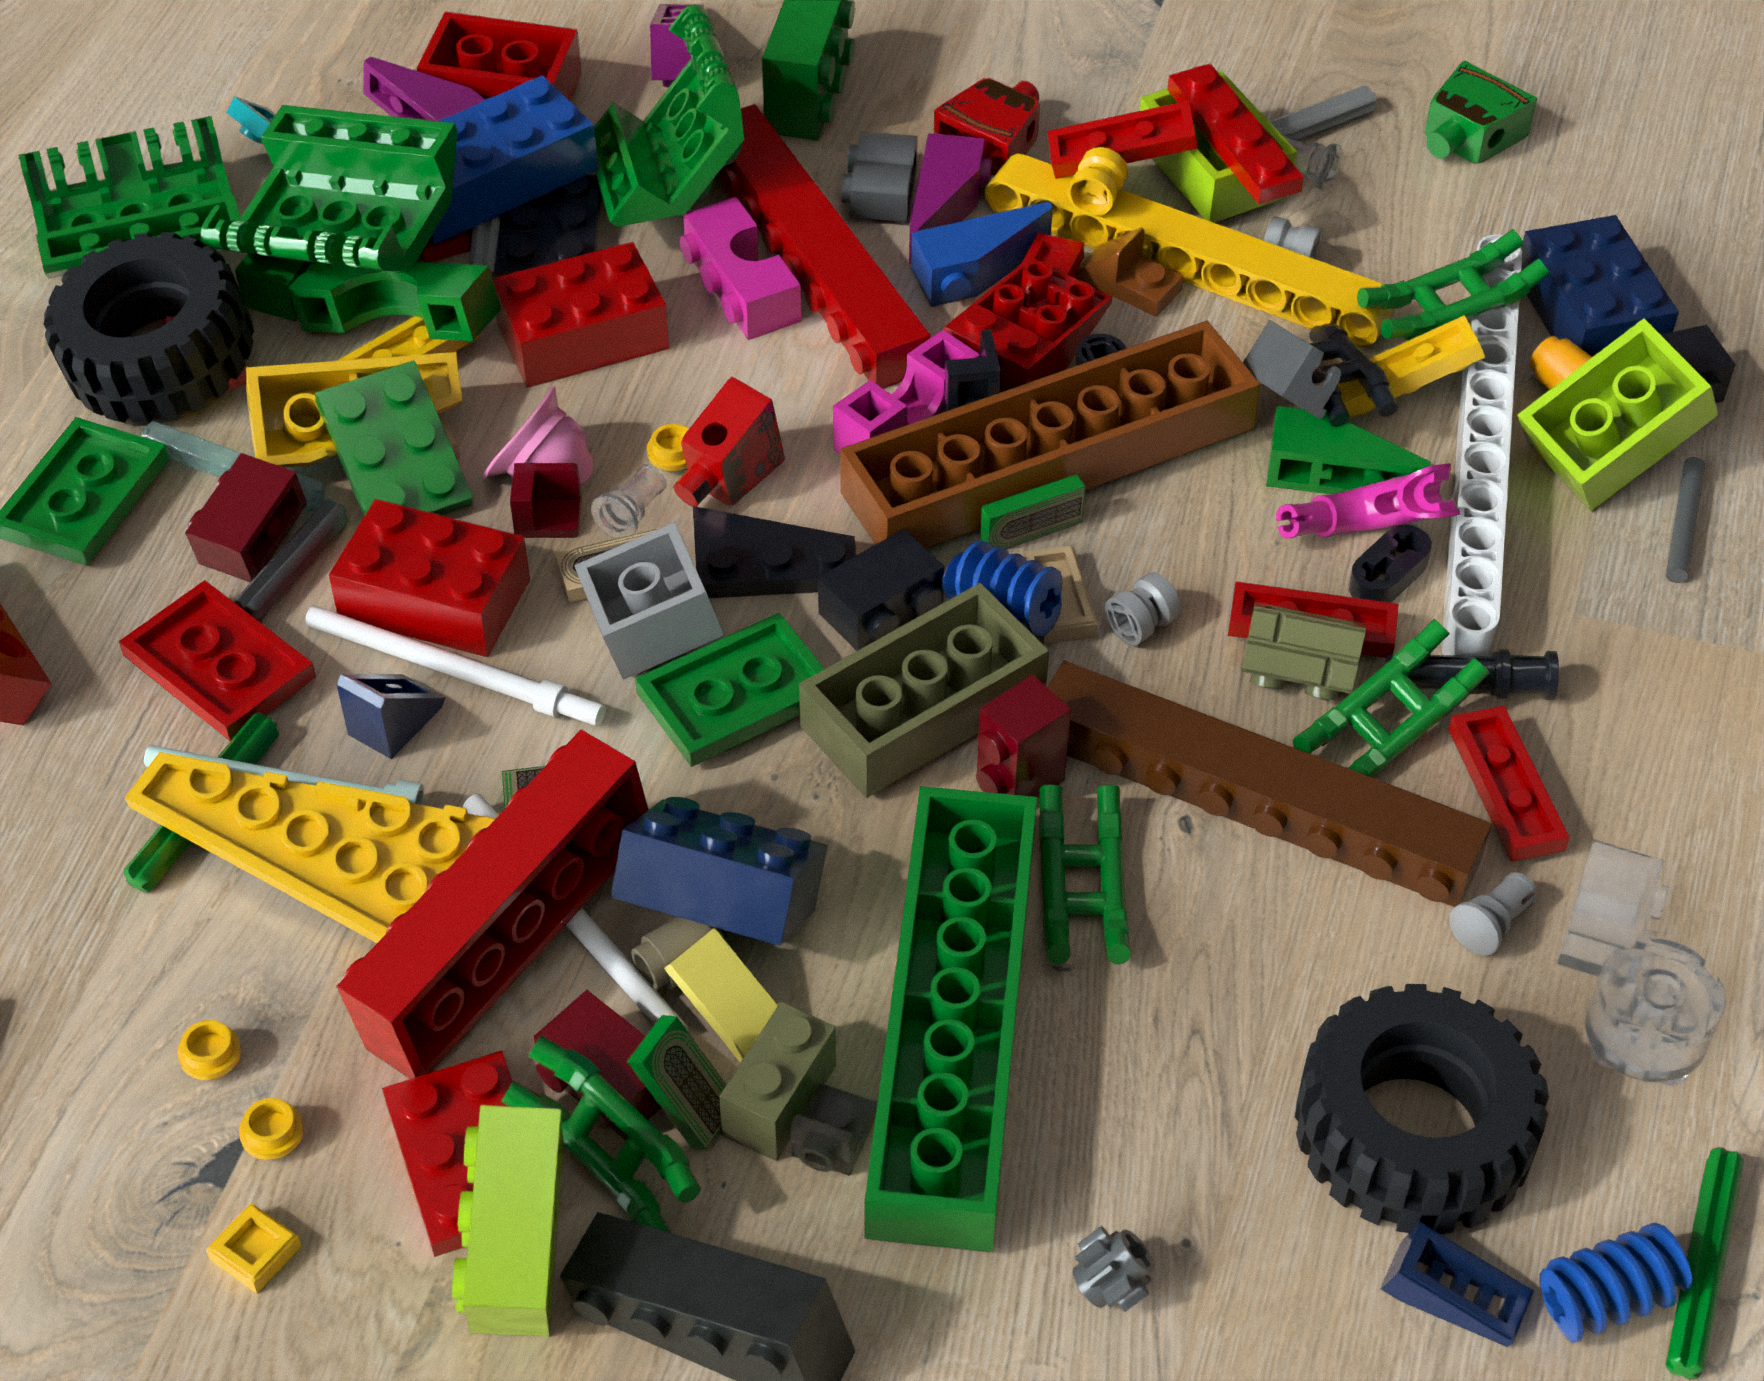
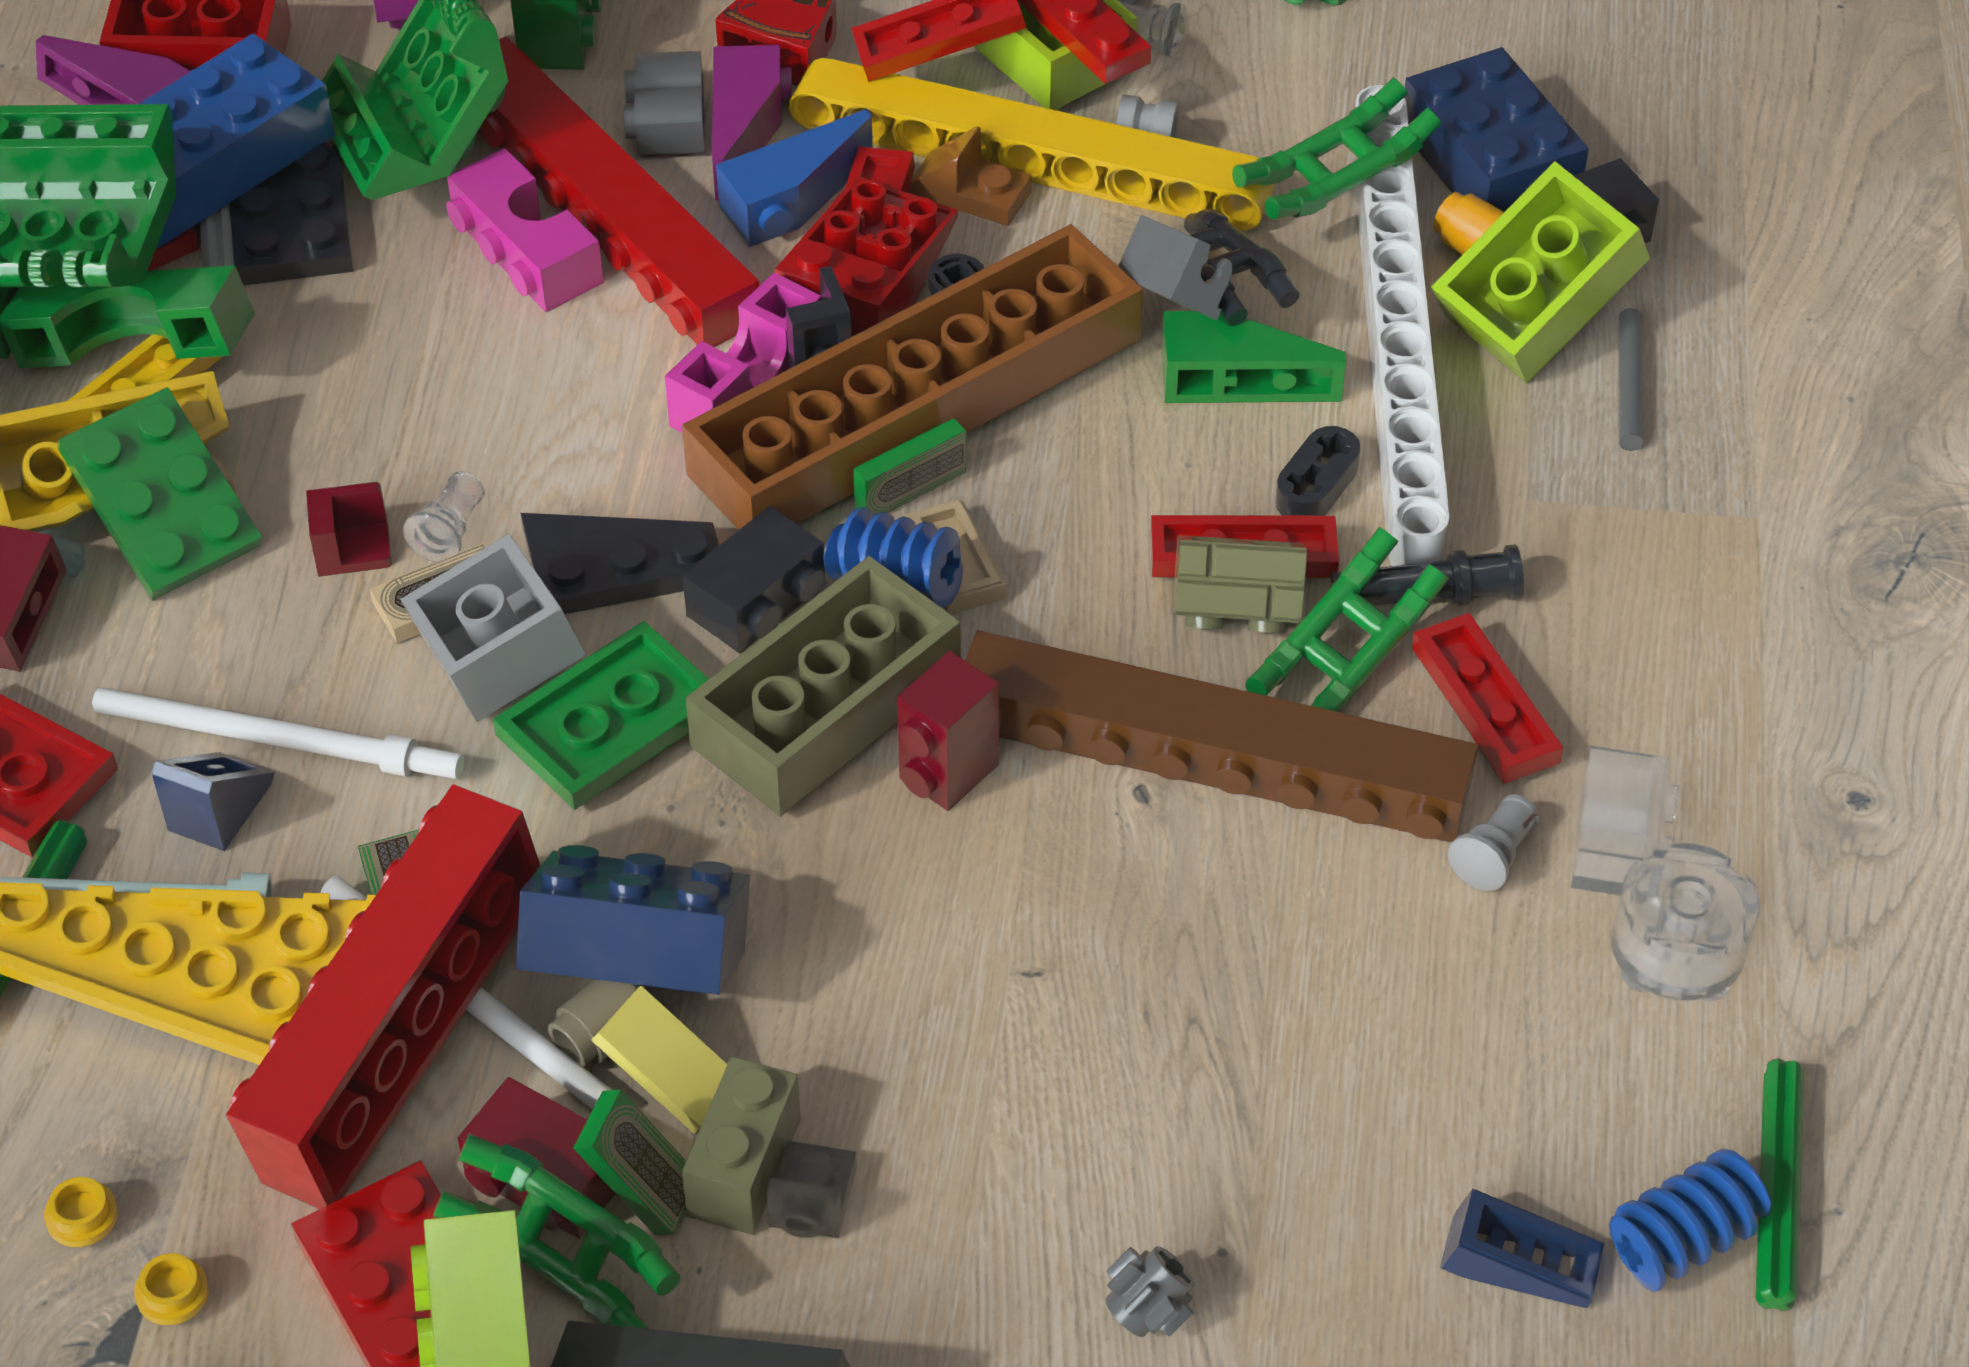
camera: 10 degrees left, 0 degrees up
(292, 559) = (63, 636): dark grey axle -> none
(431, 577) = (232, 635): red brick -> none
(545, 439) = (337, 459): bright pink piece -> none
(581, 314) = (348, 307): red brick -> none
(665, 447) = (483, 448): yellow plate -> none
(730, 446) = (552, 438): red torso -> none
(952, 1022) = (926, 1049): green brick -> none
(1097, 181) = (918, 80): yellow wheel -> none
(1105, 855) = (1059, 841): green piece -> none
(1138, 612) = (1057, 556): light grey wheel -> none
(1371, 507) = (1287, 410): dark pink piece -> none
(1405, 1174) = (1465, 993): black tyre -> none
(1418, 363) = (1314, 241): yellow plate -> none

